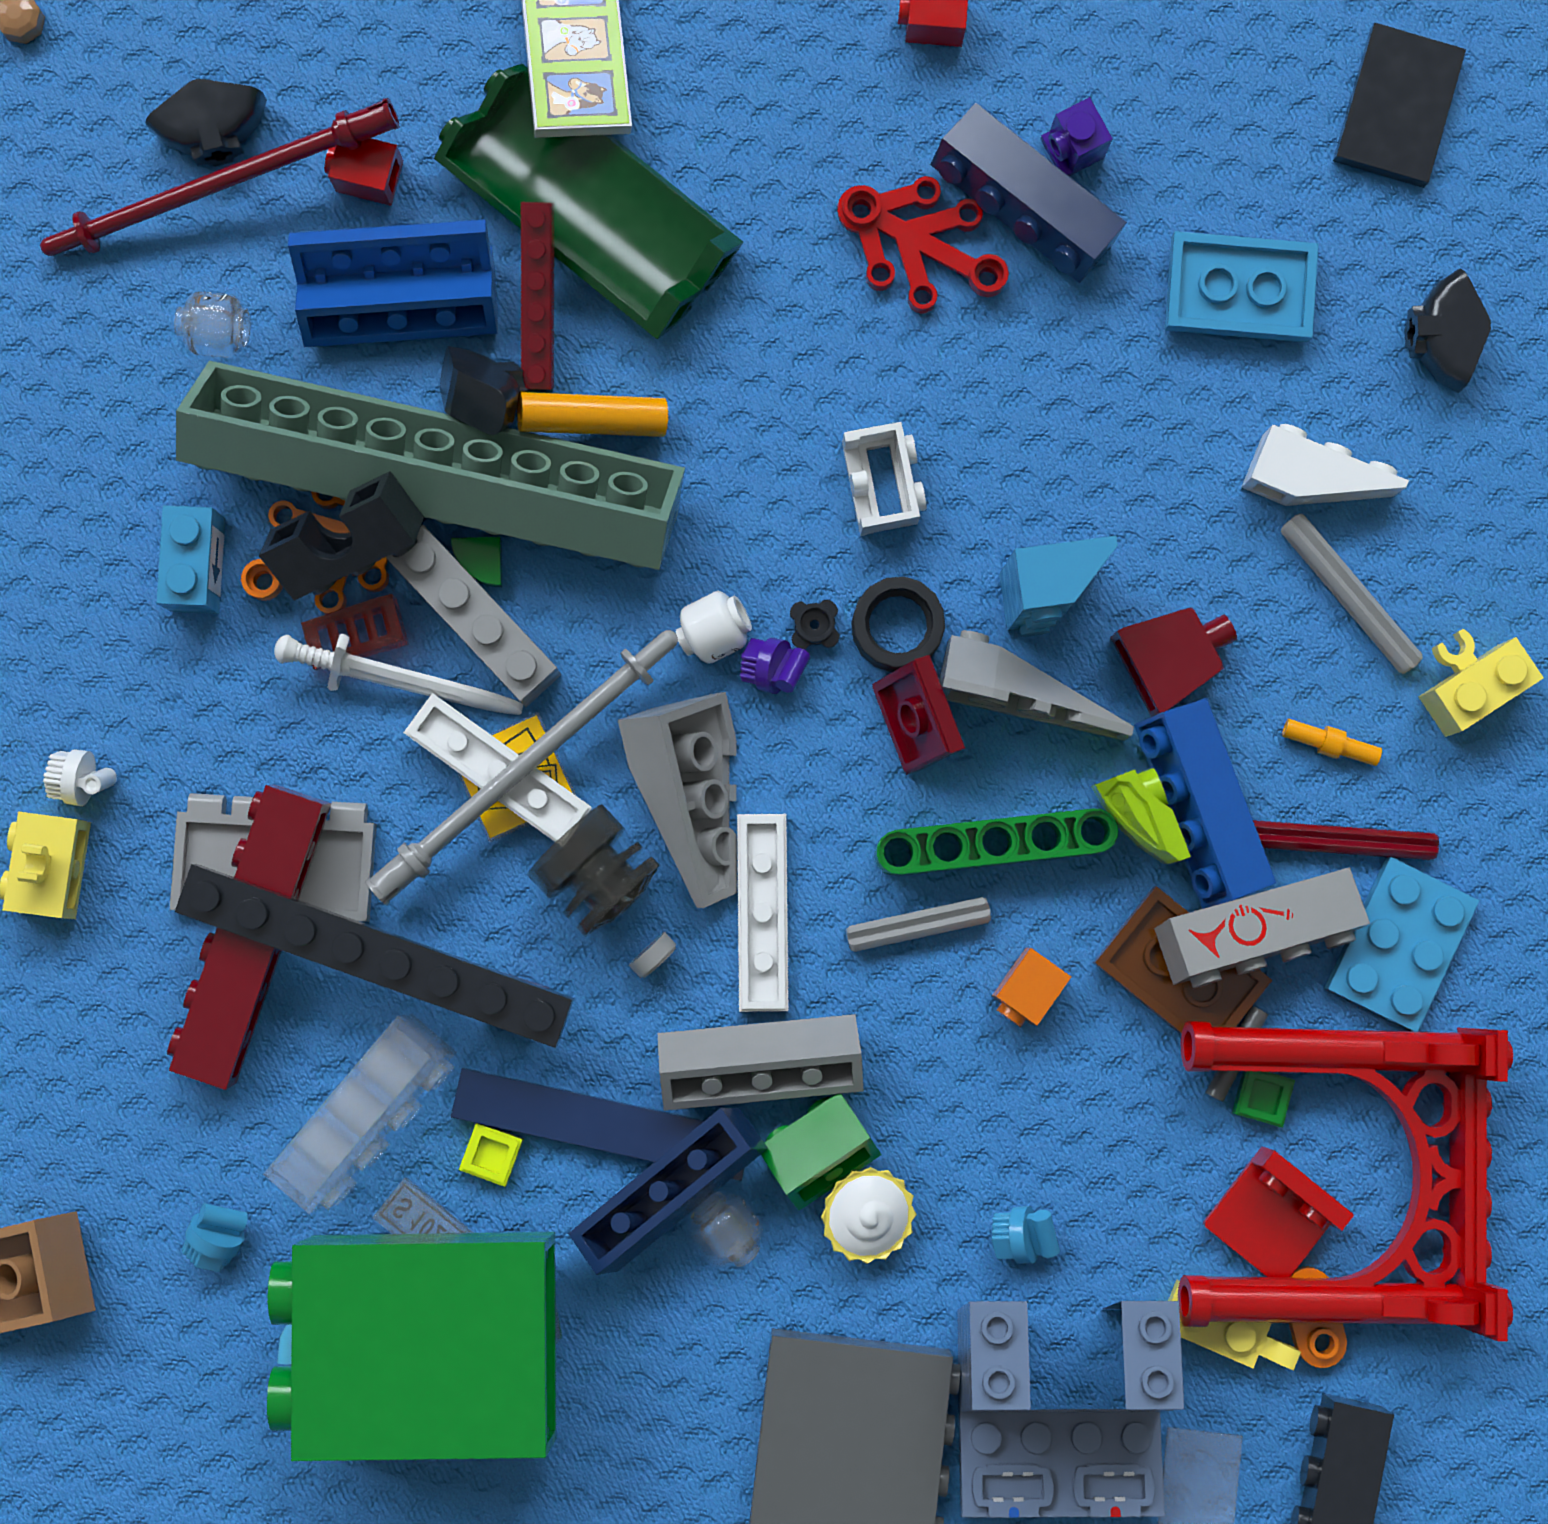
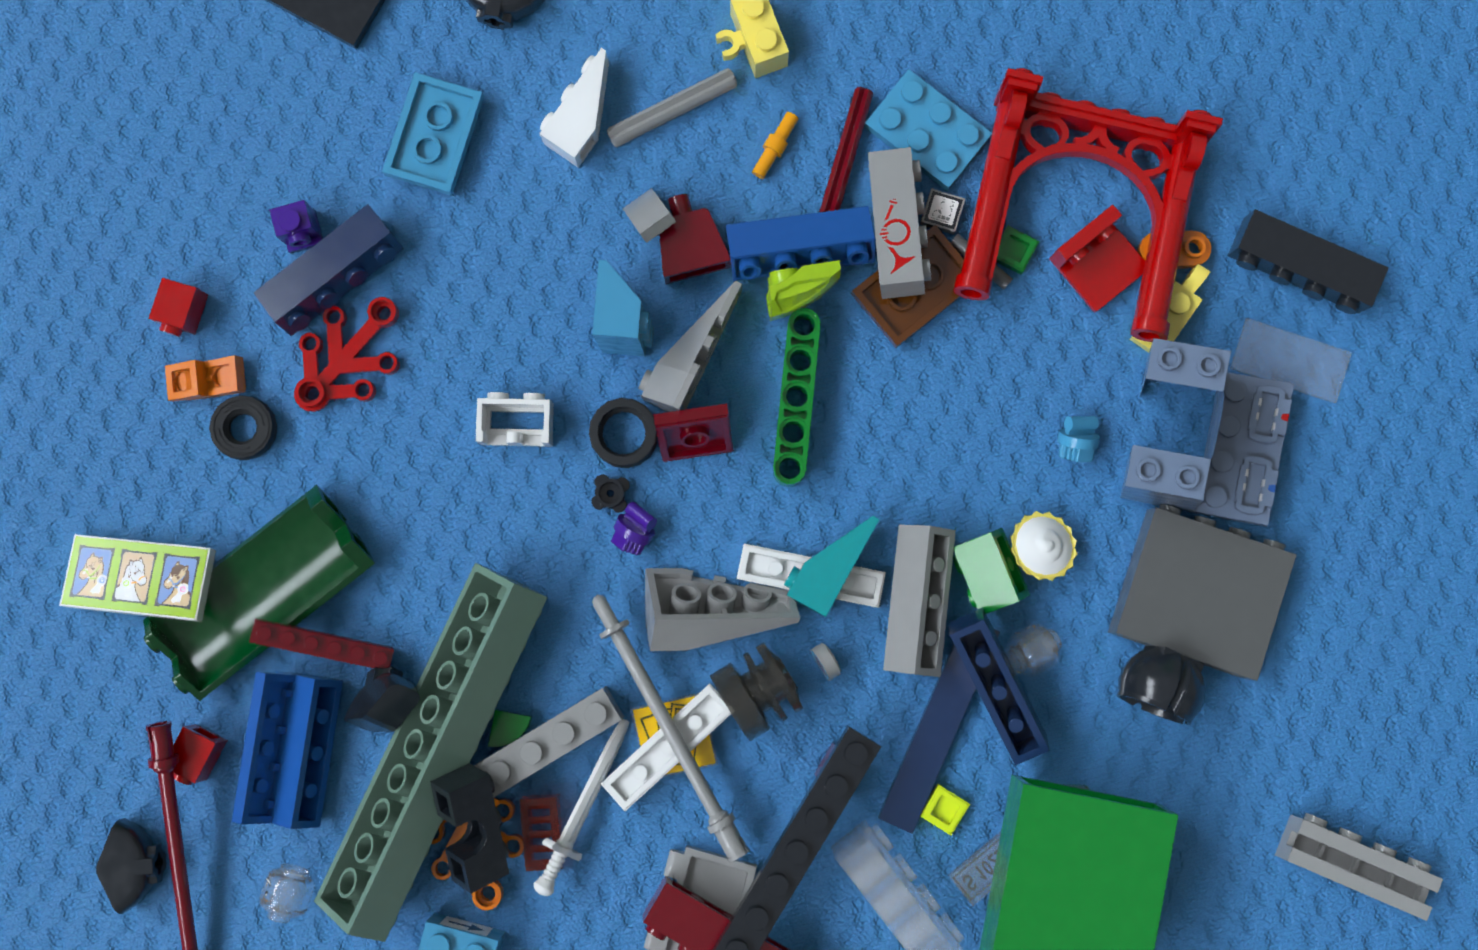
camera: 70 degrees left, 0 degrees up
(592, 414) = (420, 622): light orange piece -> none
(713, 627) = (596, 566): white head -> none
(718, 1415) = (1163, 684): none -> black piece
(768, 928) = (825, 573): none -> teal slope
(791, 103) = (221, 425): none -> black tyre
(850, 68) = (205, 378): none -> orange slope
(918, 924) = (843, 465): light grey axle -> none
(1029, 988) = (905, 396): orange brick -> none
(1195, 592) = (649, 215): none -> light grey slope
(1293, 987) = (943, 211): none -> tile

